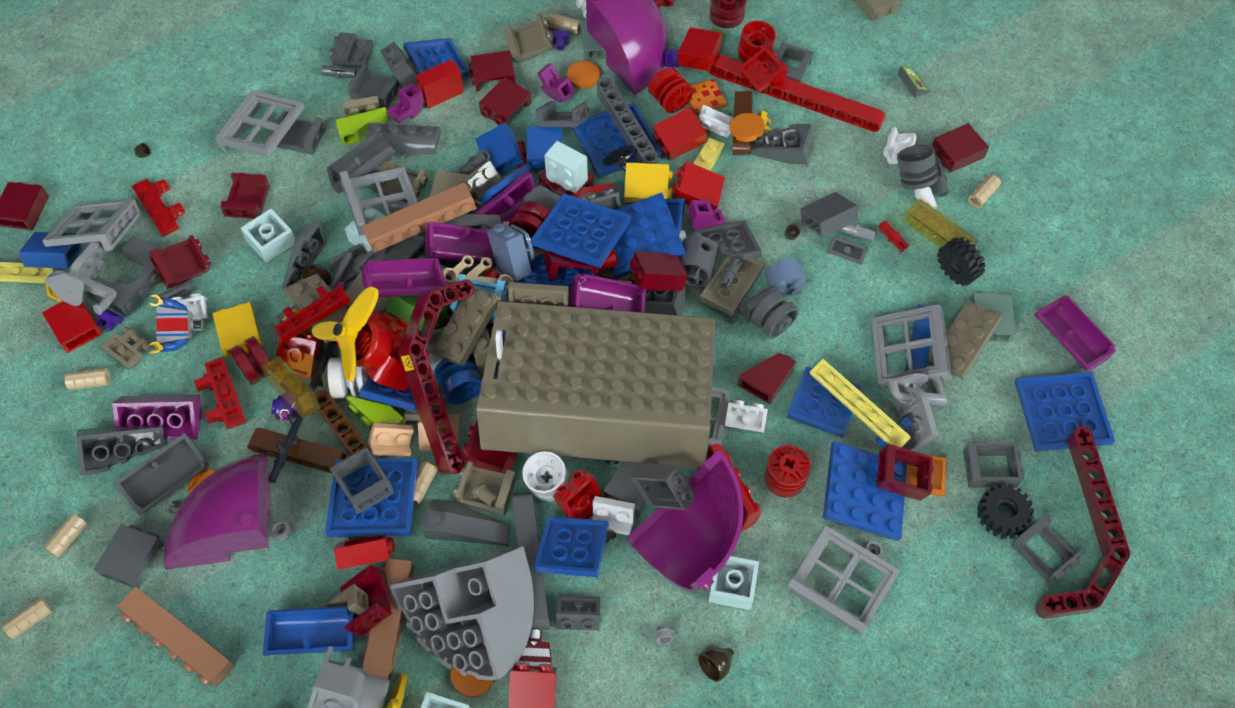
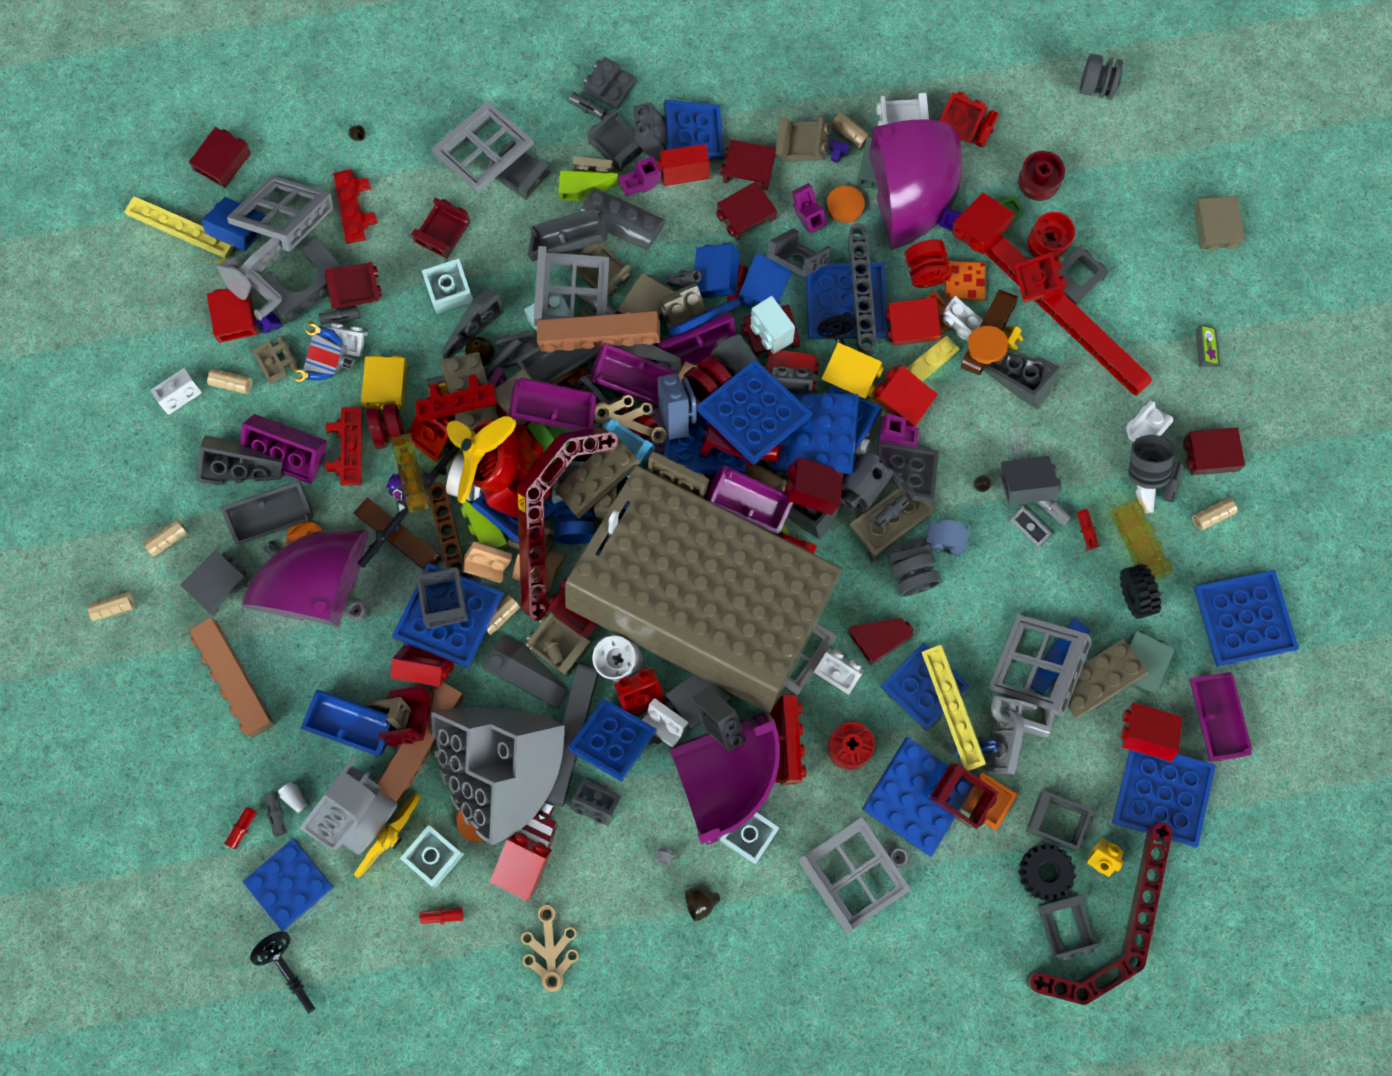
camera: 25 degrees right, 15 degrees up
(37, 405) = (176, 391): none -> white bracket
(1028, 364) = (1151, 731): none -> red brick
(1047, 478) = (1106, 857): none -> yellow brick
(1050, 256) = (1245, 618): none -> blue plate

